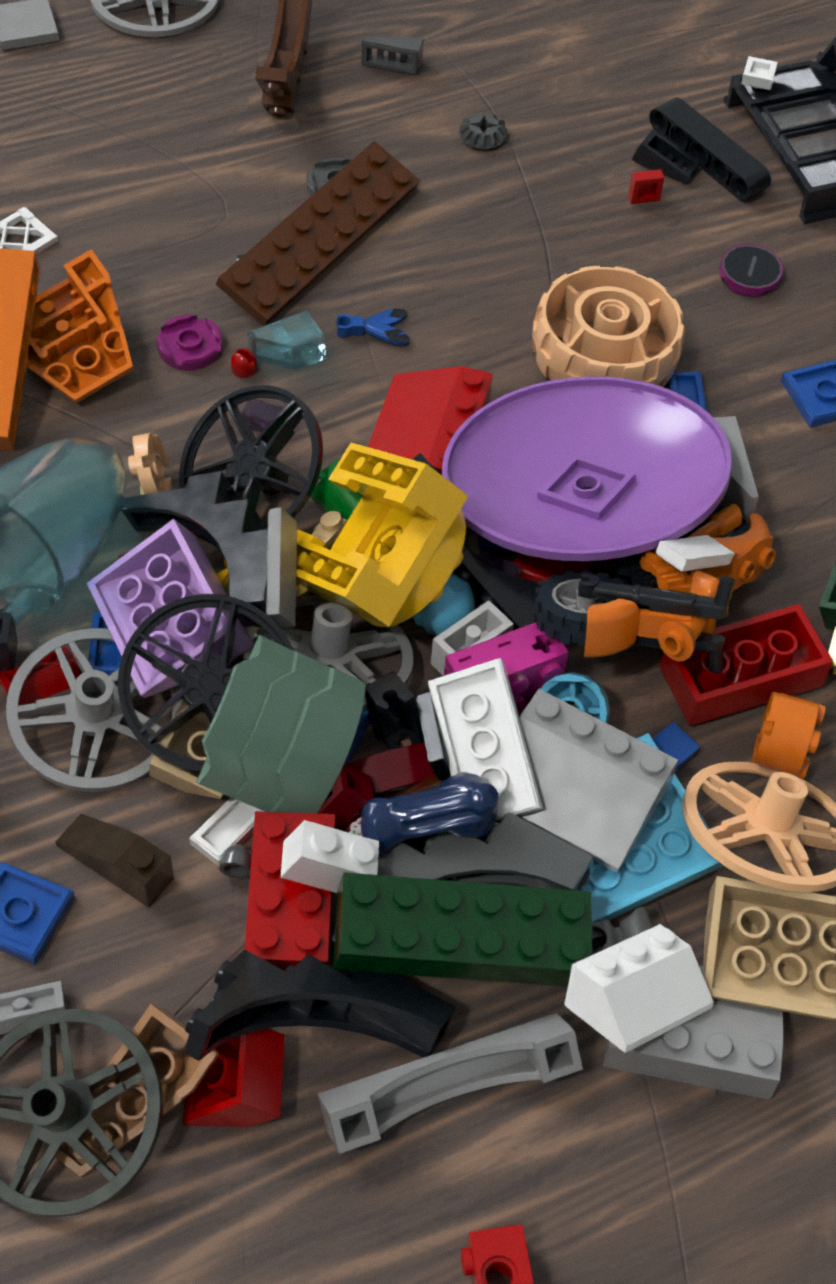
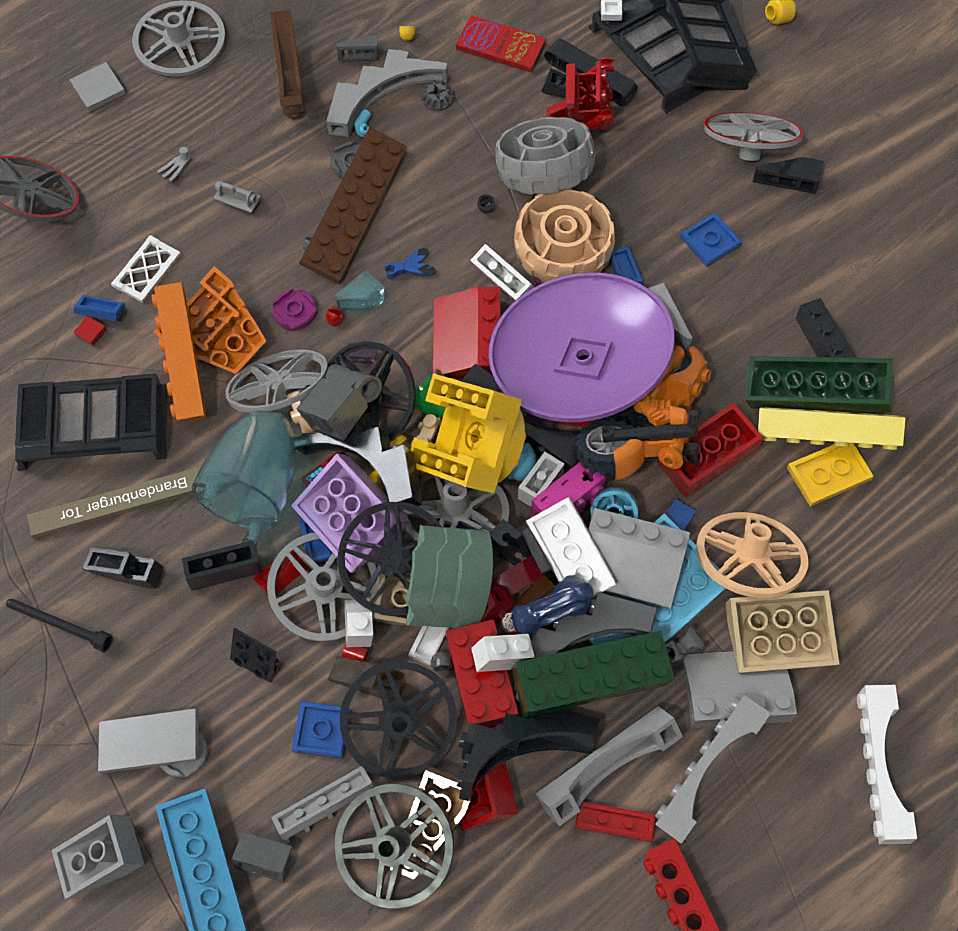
camera: 10 degrees left, 10 degrees up
(93, 135) = (177, 164): none -> light grey piece
(109, 811) = (355, 653): none -> red hinge
(124, 772) = (358, 624): none -> white slope
(126, 422) = (276, 383): none -> light grey wheel
(136, 920) = (398, 719): none -> black wheel
(160, 187) = (236, 196): none -> light grey hinge
(202, 453) = (339, 401): none -> dark grey piece
(281, 567) = (415, 470): light grey tile -> none
(367, 137) = (361, 123): none -> medium azure arm
(400, 96) = (375, 83): none -> light grey arch
(435, 1176) = (615, 821): none -> red tile
(466, 49) = (407, 32): none -> yellow hinge
(499, 355) = (501, 273): none -> white brick
(507, 268) = (483, 200): none -> black hinge
(593, 90) = (501, 43): none -> red tile
(610, 223) = (545, 155): none -> light grey wheel
(638, 988) = (704, 682): white slope -> none
(687, 1062) = (678, 816): none -> light grey arch
(694, 553) = (666, 394): white tile -> none
(696, 166) = (590, 95): none -> red torso
(751, 270) = (641, 159): black tile -> none
(788, 734) = (747, 491): orange brick -> none

